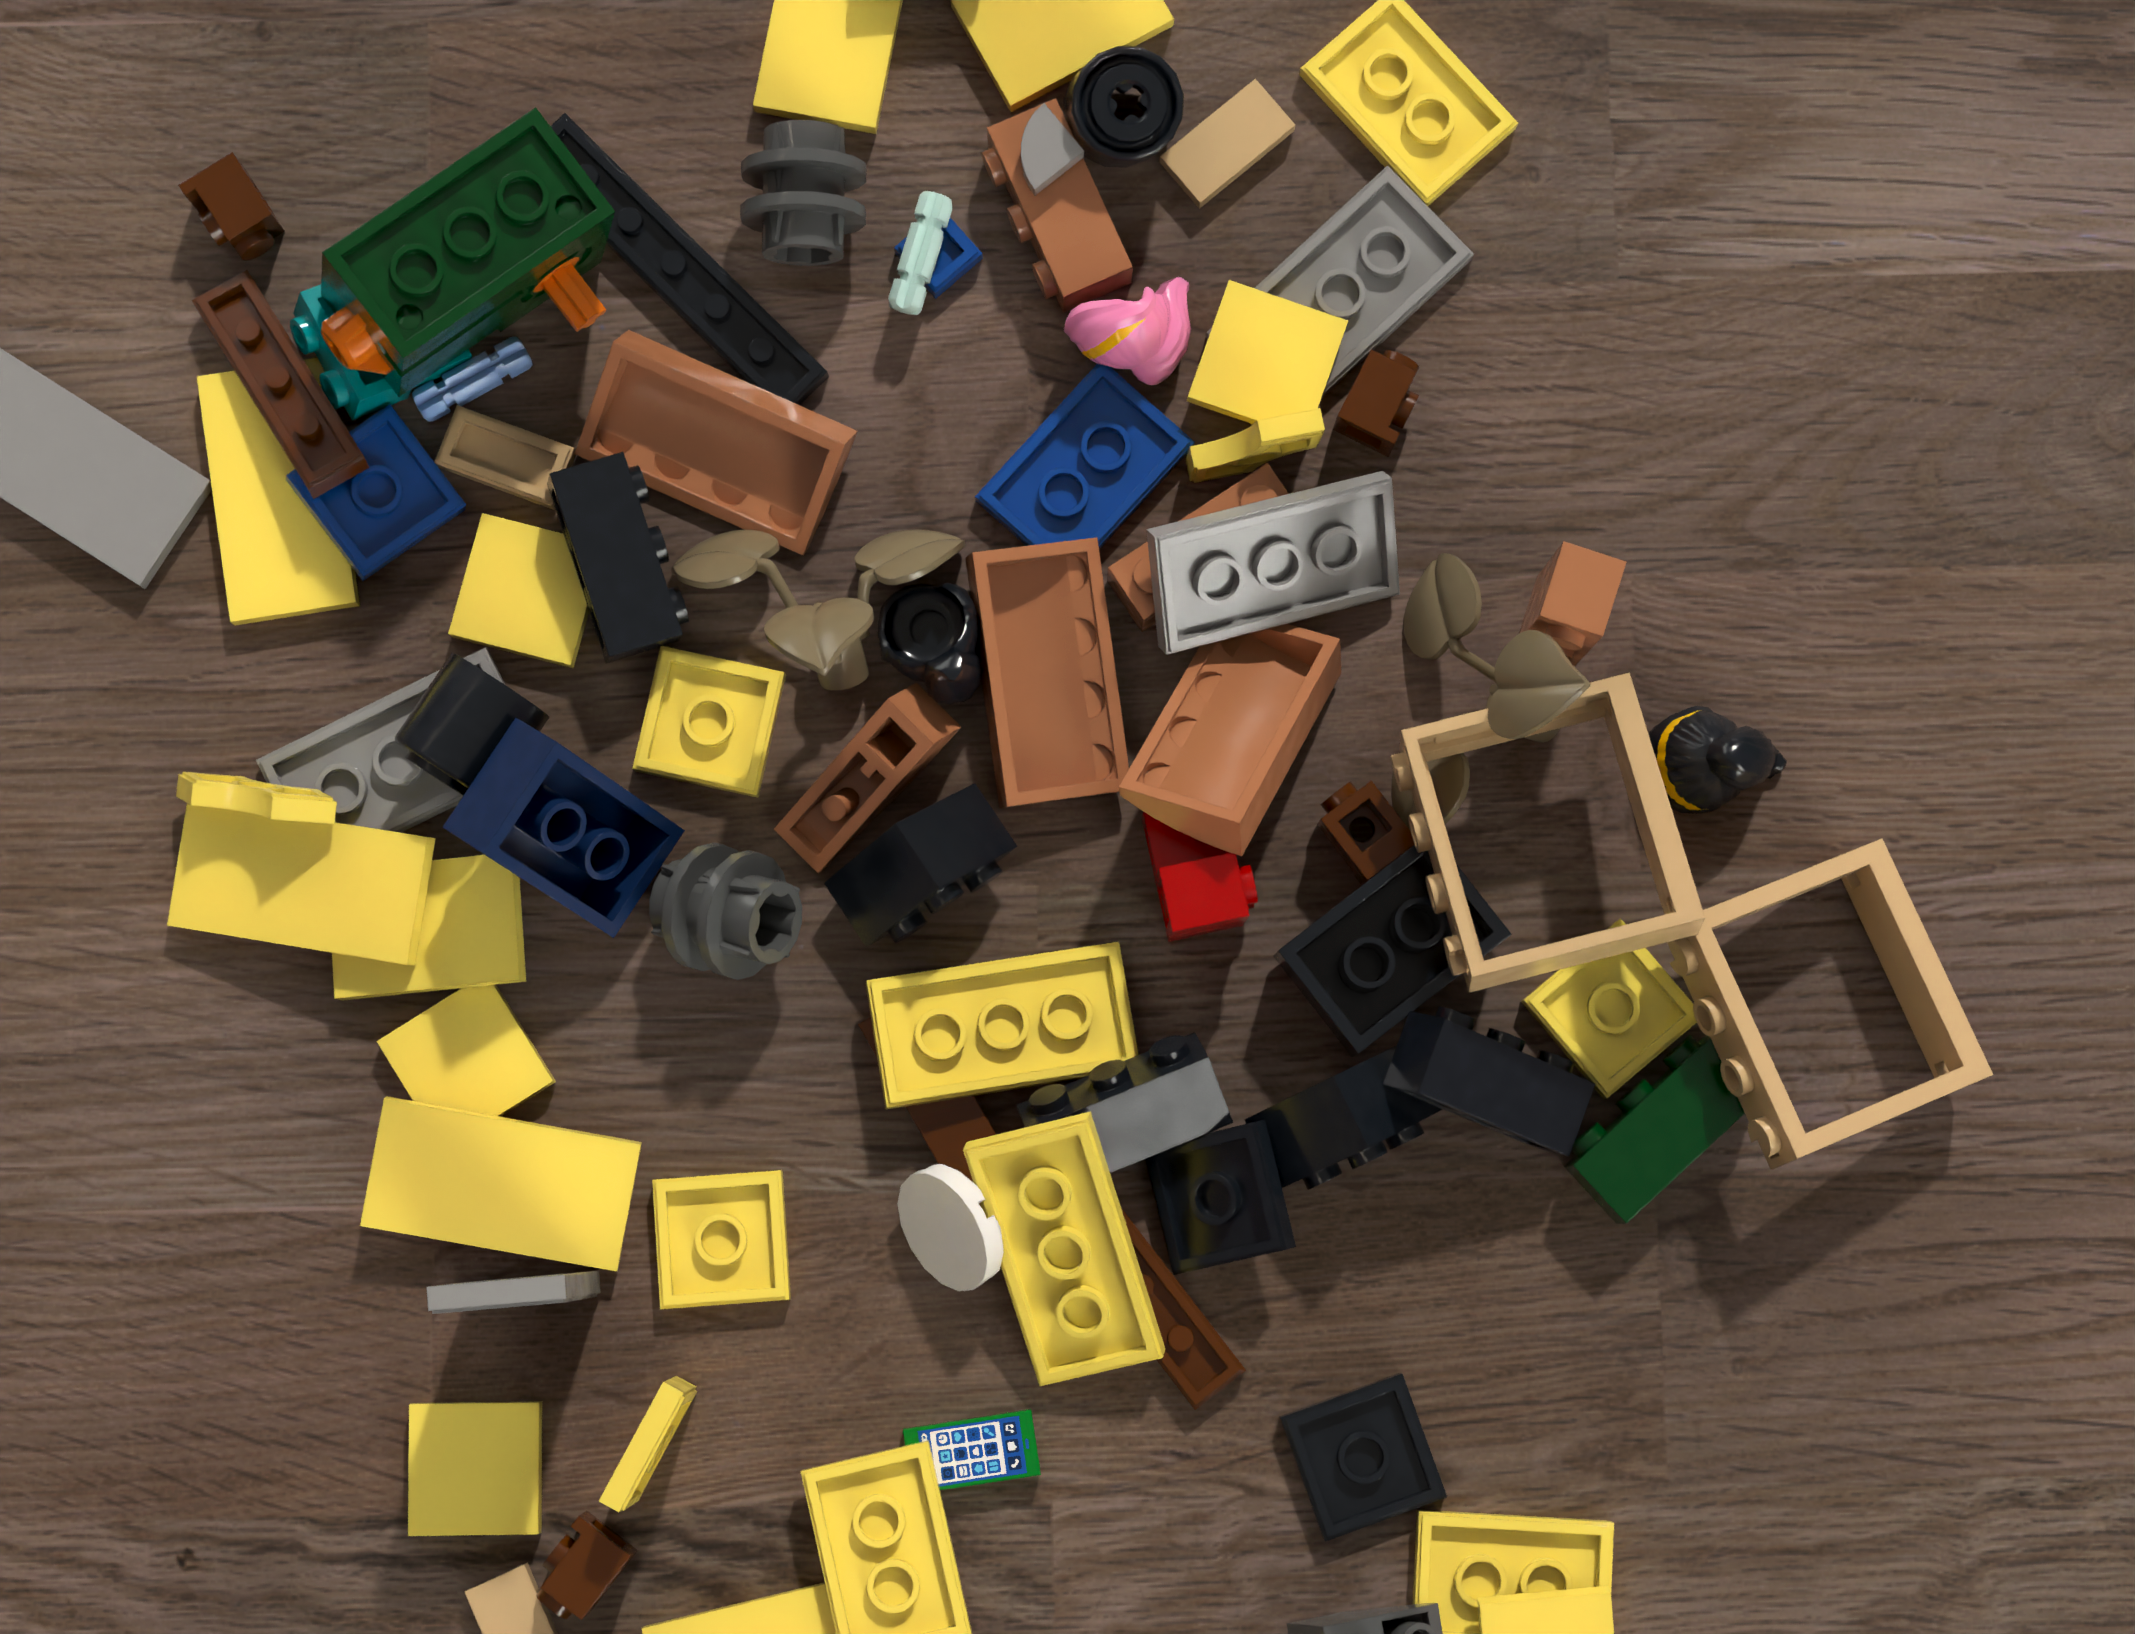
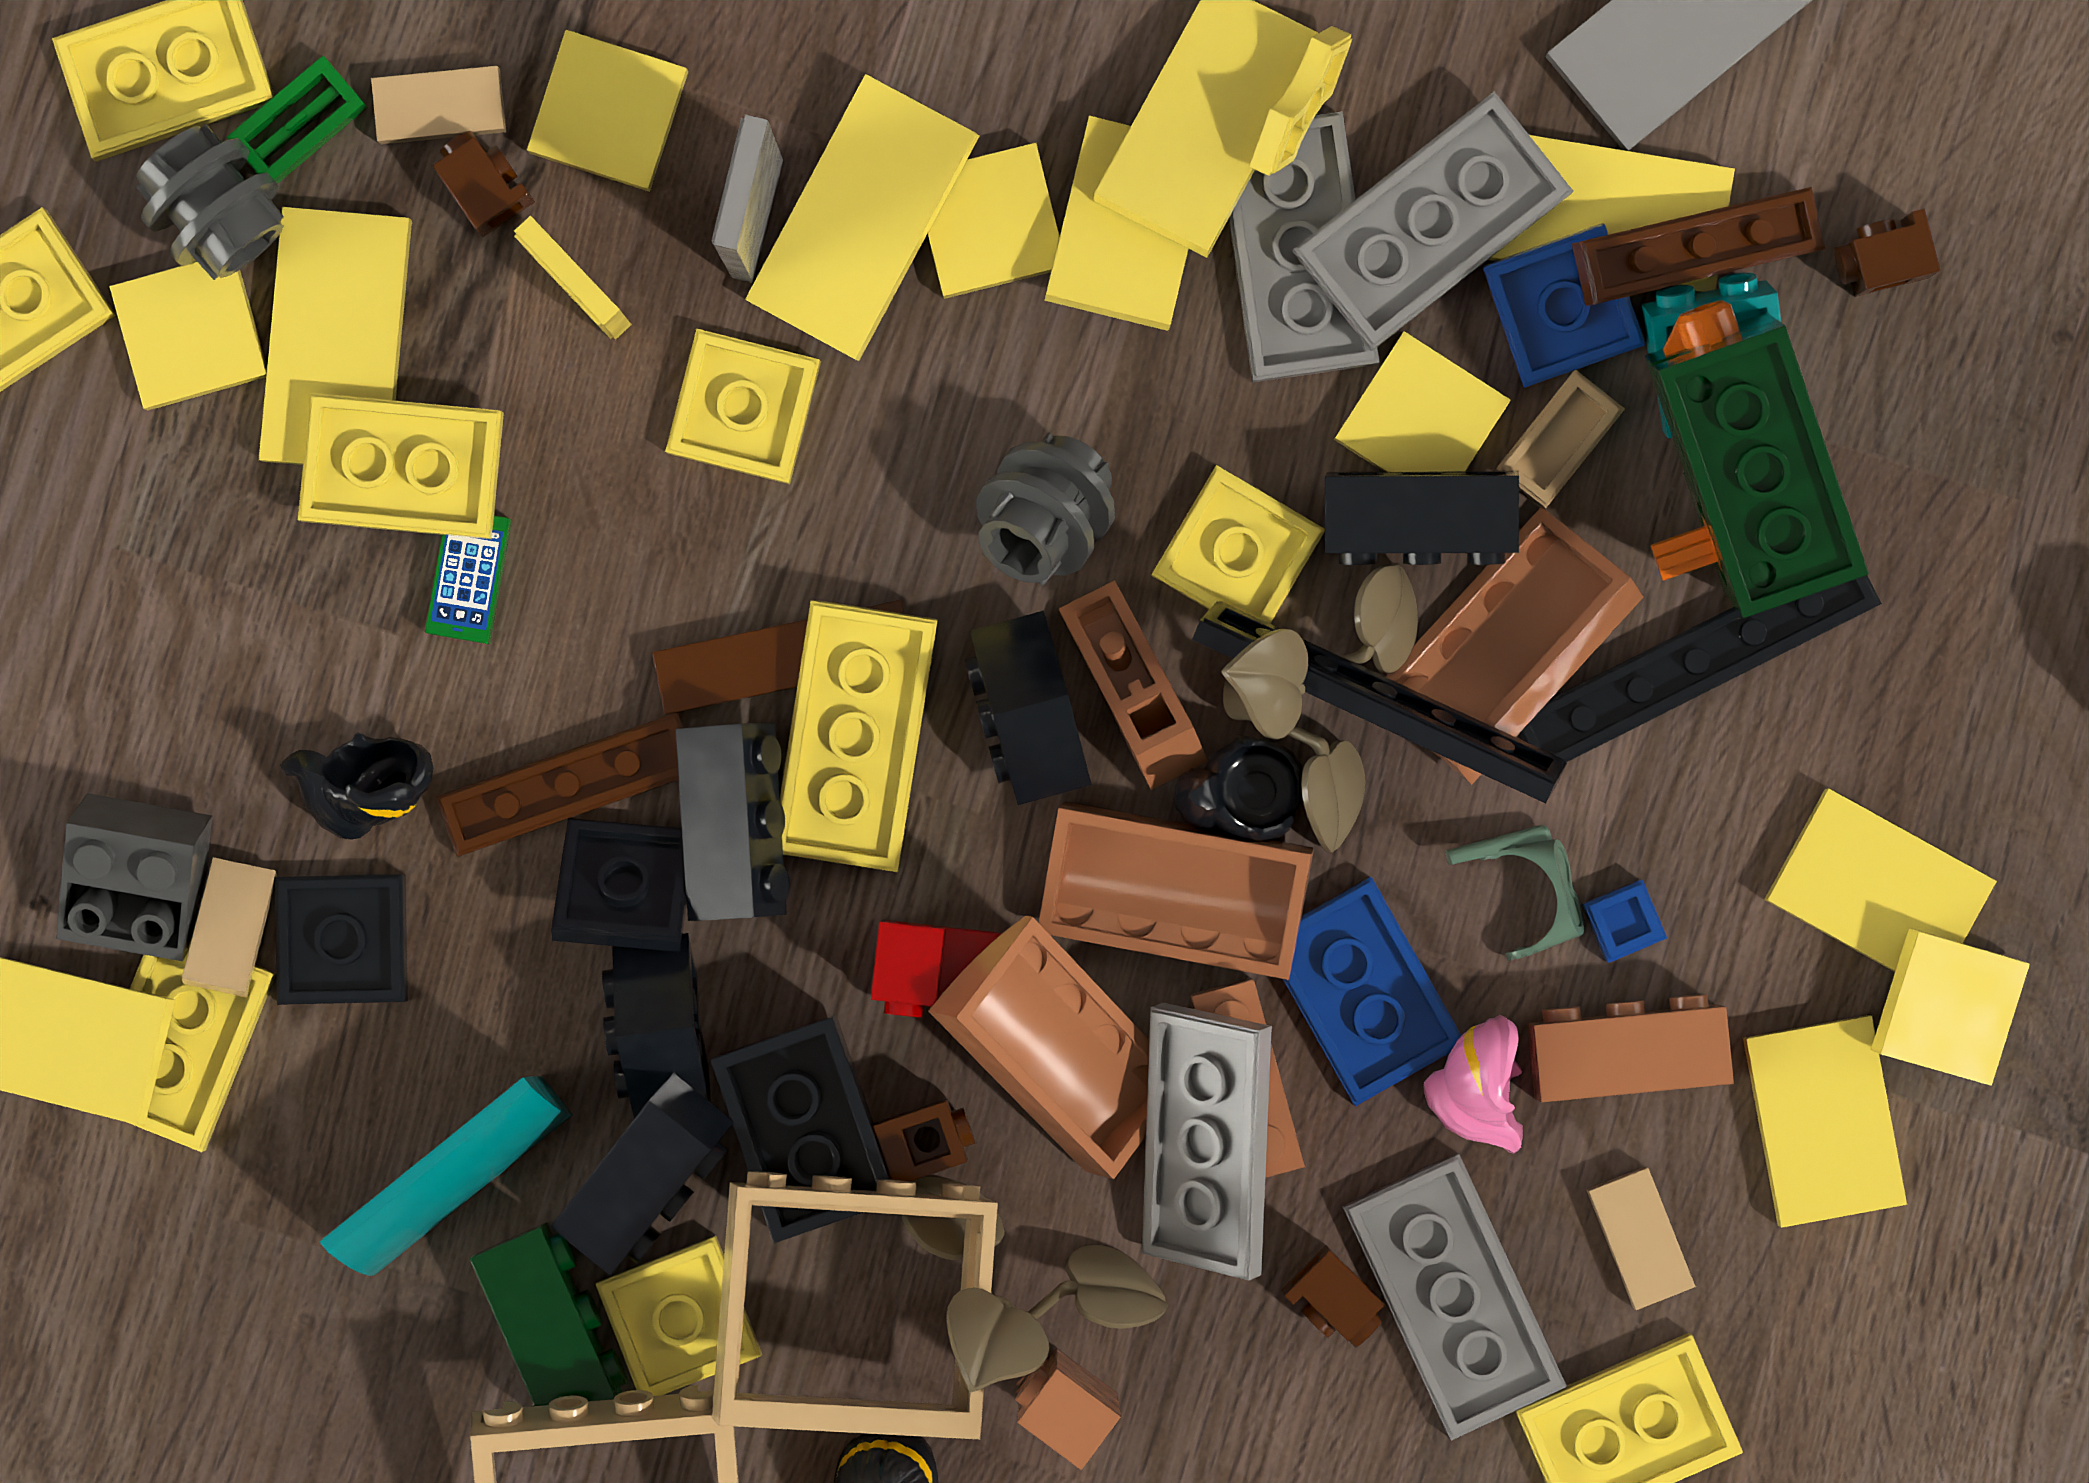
camera: 110 degrees right, 5 degrees up
(326, 633) = (1432, 221): none -> light grey tile
(462, 722) = (1296, 322): black piece -> none
(472, 379) = (1646, 432): light blue axle -> none
(564, 827) = (1171, 381): dark blue brick -> none
(803, 193) = (1719, 808): dark grey piece -> none
(806, 517) = (1398, 708): none -> black tile
(894, 353) = (1536, 845): none -> sand green helmet
(920, 253) = (1625, 902): light aqua axle -> none
(949, 1227) = (678, 621): white tile -> none
(1047, 150) = (1682, 1056): light grey tile -> none
(1065, 1249) = (622, 723): light yellow tile -> none
(1091, 109) = (1735, 1156): black piece -> none
(1205, 1485) = (361, 782): none -> black hair
(1255, 445) = (1326, 1161): light yellow tile -> none
(1265, 356) = (1408, 1202): light yellow tile -> none
(1389, 1568) = (229, 927): none -> tan tile
(1556, 1271) = (447, 1176): none -> teal slope

